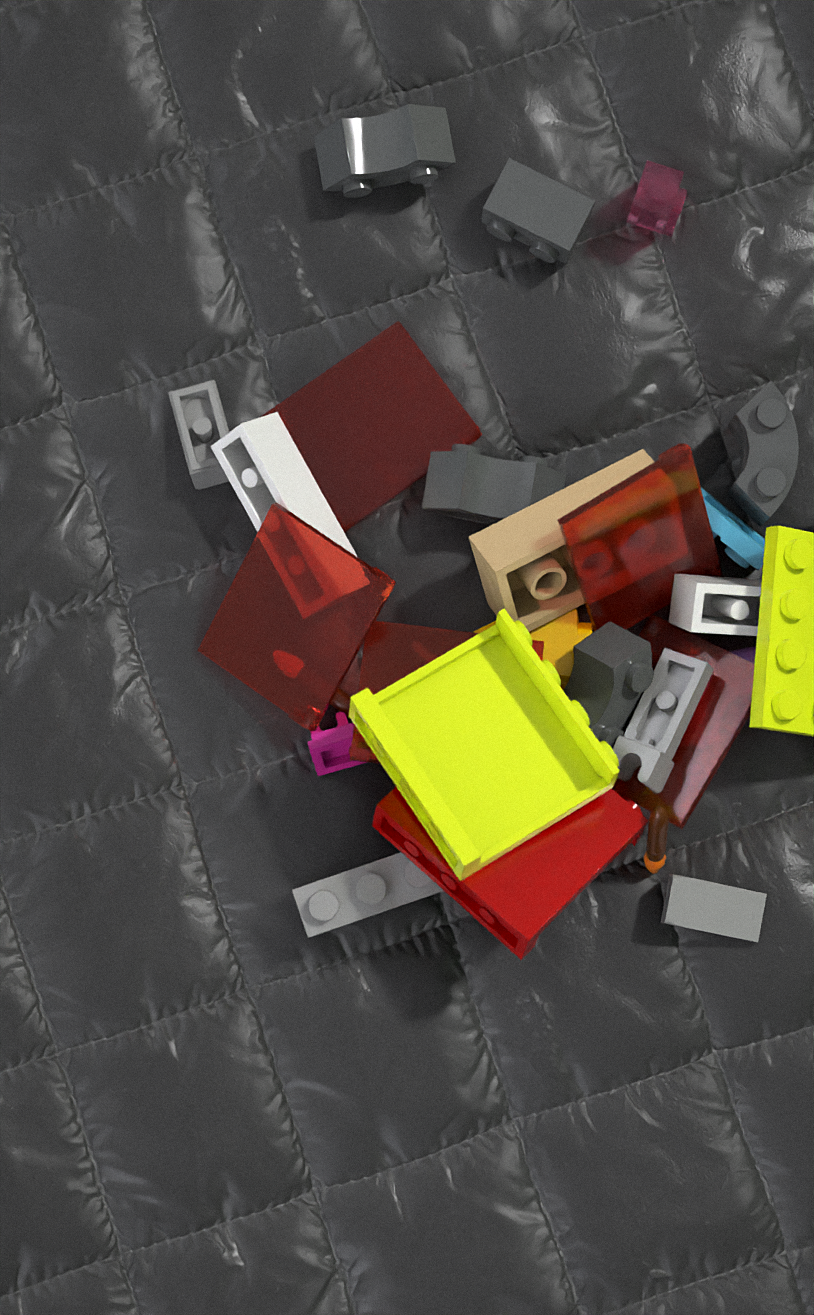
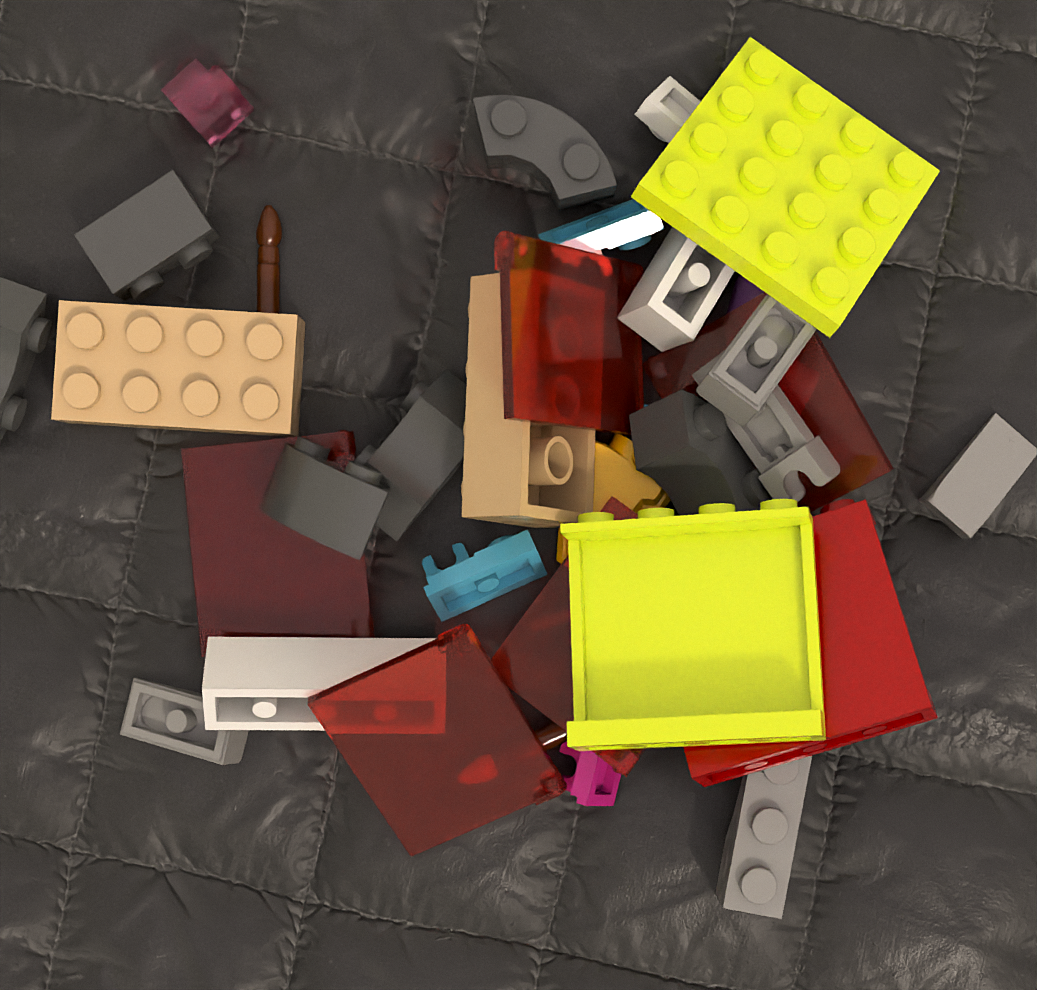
camera: 55 degrees left, 5 degrees up
(424, 437) = (324, 498): none -> dark grey brick
(432, 585) = (485, 576): none -> medium azure plate
(456, 285) = (178, 368): none -> tan brick
(557, 313) = (268, 258): none -> reddish brown piece
(656, 839) = (884, 498): reddish brown piece -> none
(701, 682) = (755, 360): none -> light grey slope

